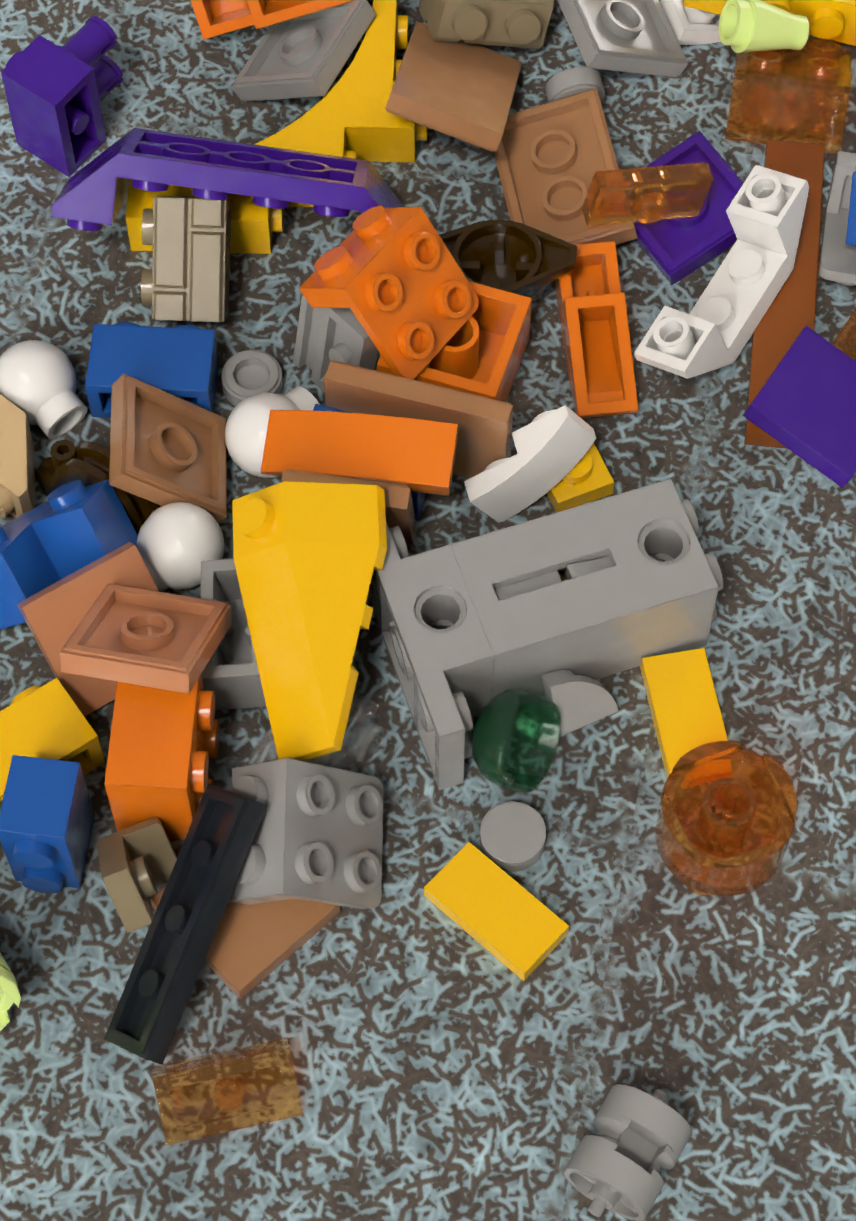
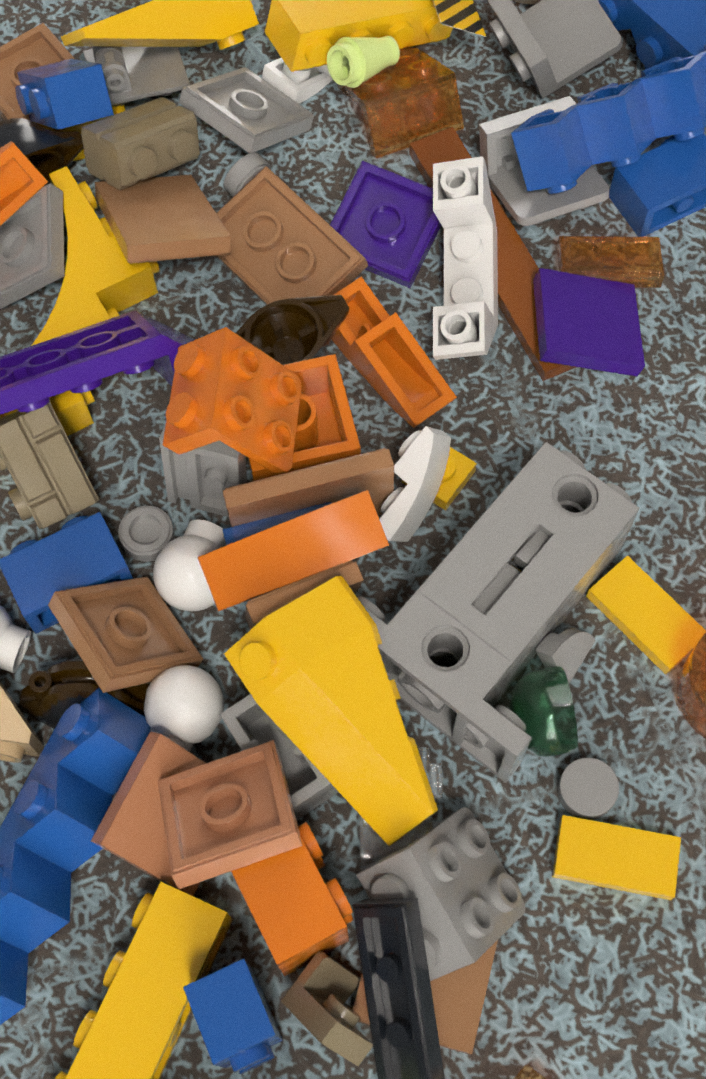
camera: 30 degrees left, 5 degrees up
(647, 194) = (364, 227): clear orange plate -> none

